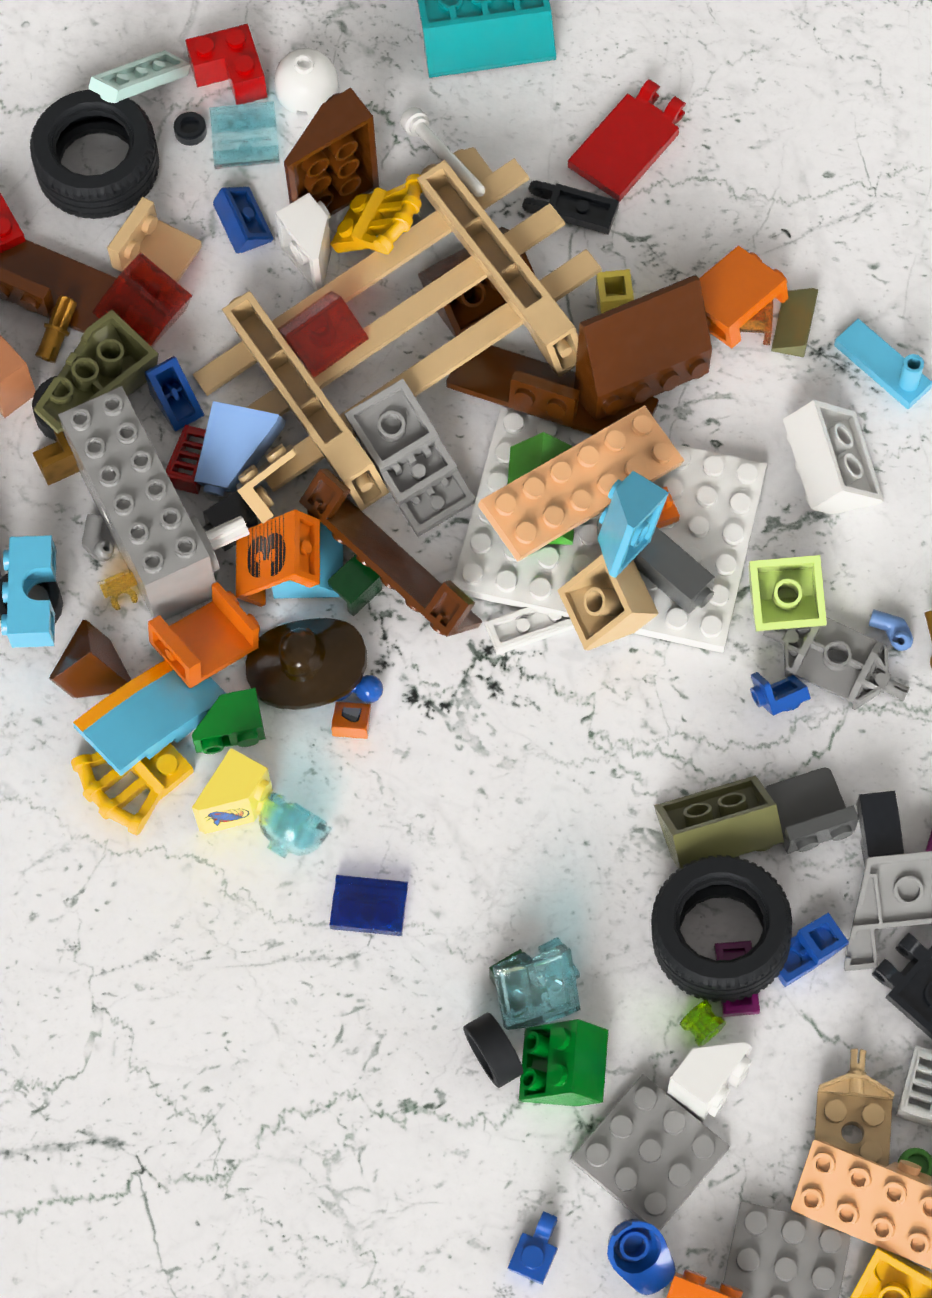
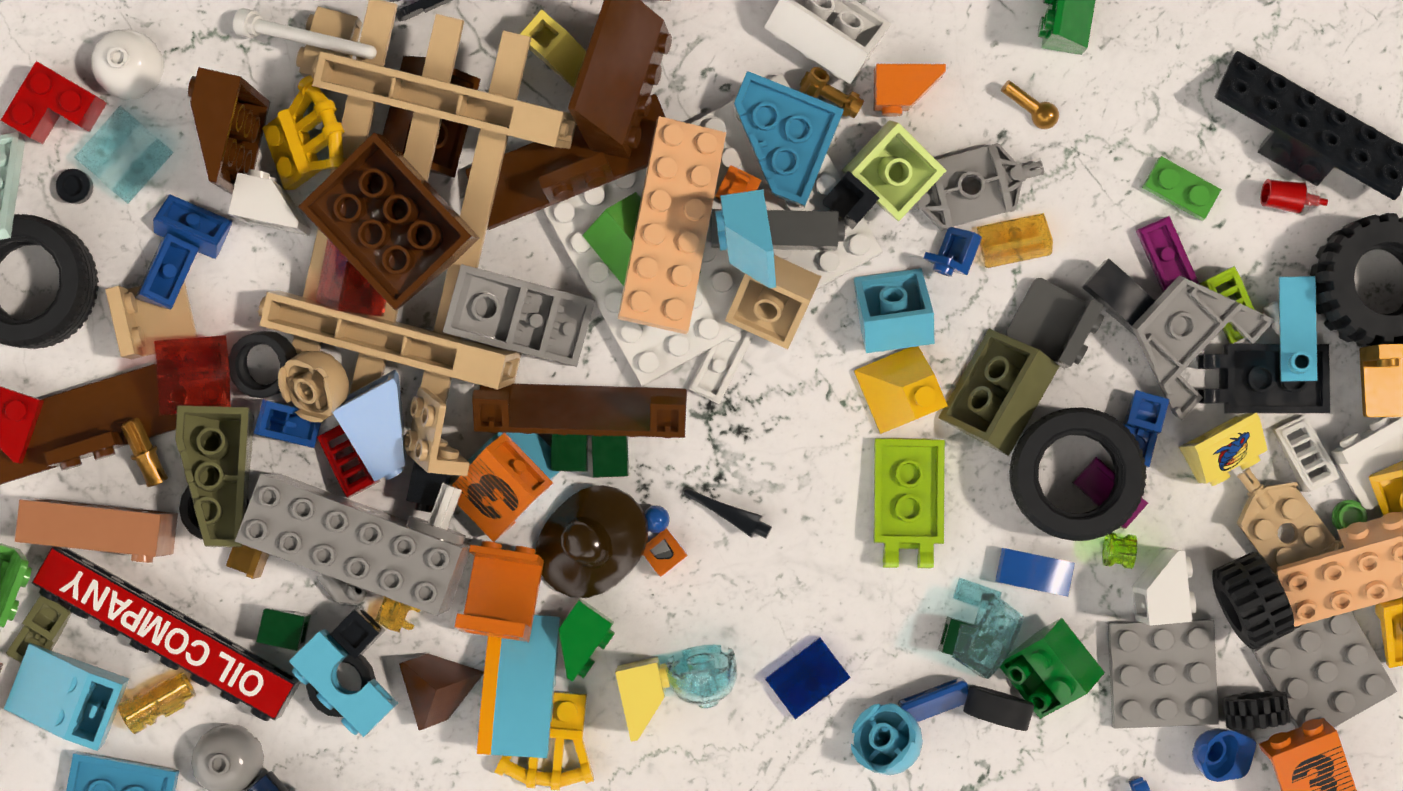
camera: 45 degrees left, 20 degrees up
(26, 520) = (283, 629): none -> dark green panel
(76, 572) = (357, 632): none -> black brick
(192, 321) = (238, 362): none -> black tyre
(195, 228) = (167, 272): none -> blue slope
(219, 375) = (314, 384): none -> tan cylinder
(380, 614) = (610, 456): none -> dark green brick
(381, 305) = (388, 221): none -> reddish brown slope
(384, 996) = (886, 739): none -> medium azure cylinder
(434, 748) = (742, 519): none -> black piece
(445, 1006) = (936, 699): none -> blue slope
(573, 842) = (909, 498): none -> lime tile
(620, 982) = (1035, 572): none -> blue slope
(643, 759) = (900, 388): none -> yellow slope
(691, 696) = (894, 310): none -> medium azure slope
(698, 1239) = (1256, 710): none -> black tyre
(729, 501) = (787, 134): none -> dark azure plate
(734, 586) = (850, 199): none -> black panel
(773, 1145) = (1253, 600): none -> black tyre
(783, 493) = (815, 84): none -> pearl gold bar
(835, 730) = (1015, 240): none -> clear yellow slope
(852, 546) = (902, 85): none -> orange slope
(860, 1015) = (1225, 448): none -> light yellow slope
(895, 628) = (989, 121): medium blue arm -> none

